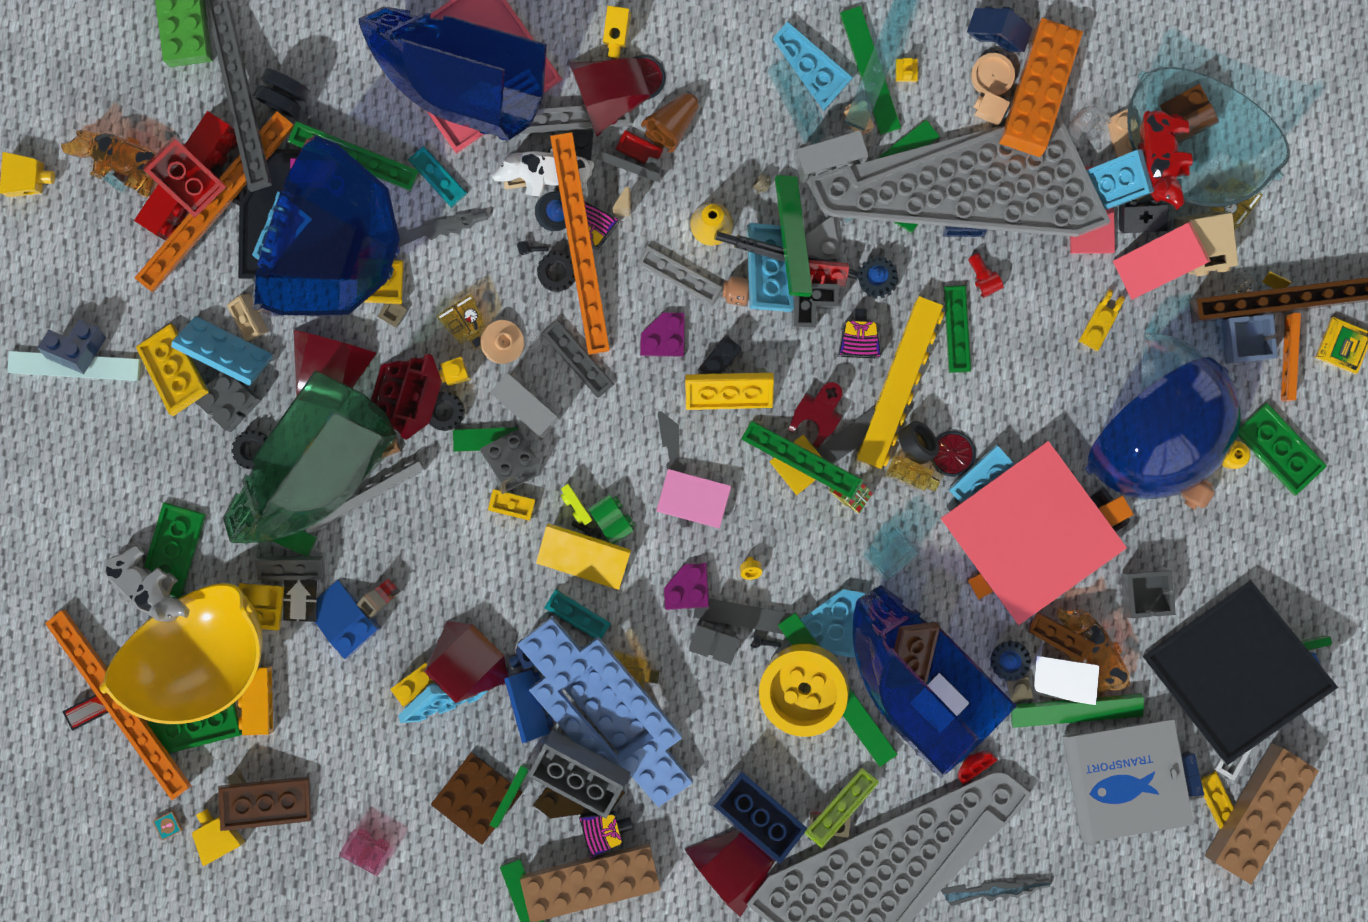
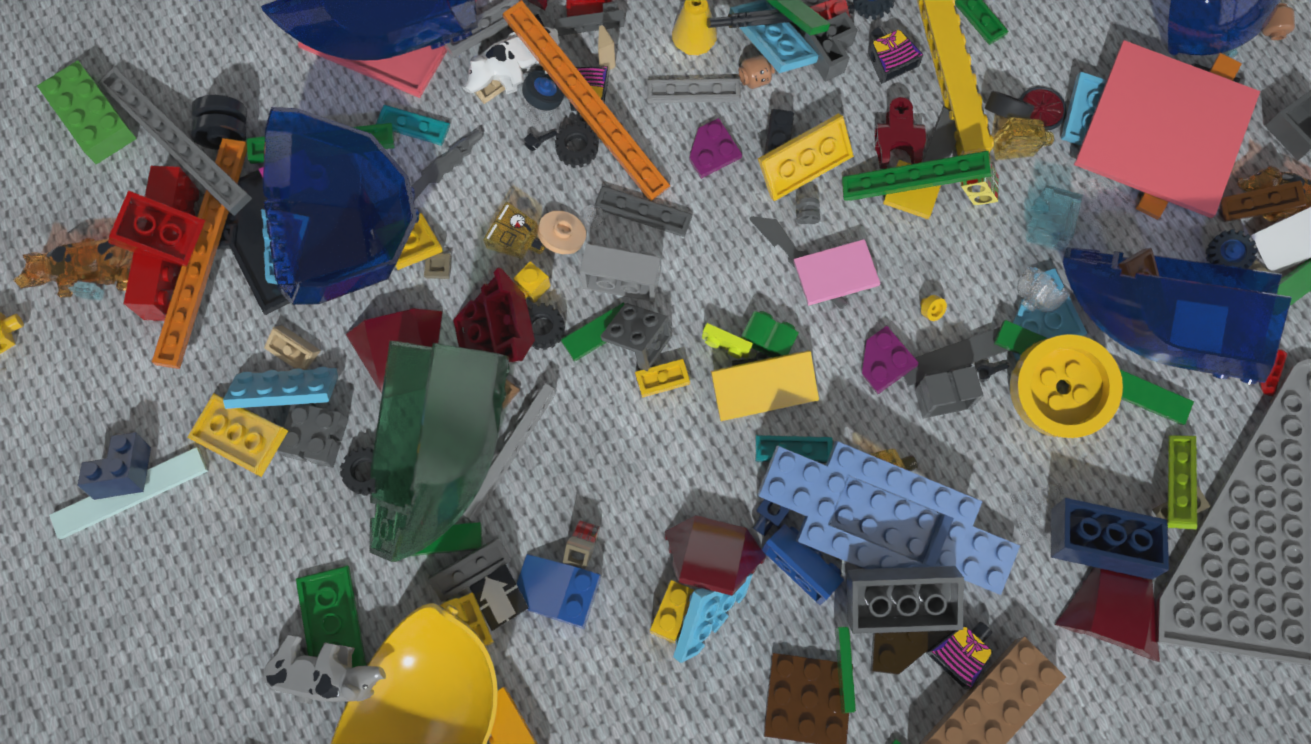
camera: 30 degrees left, 15 degrees down
(704, 435) = (808, 211): none -> dark grey wheel
(834, 607) = (1040, 291): none -> clear cylinder

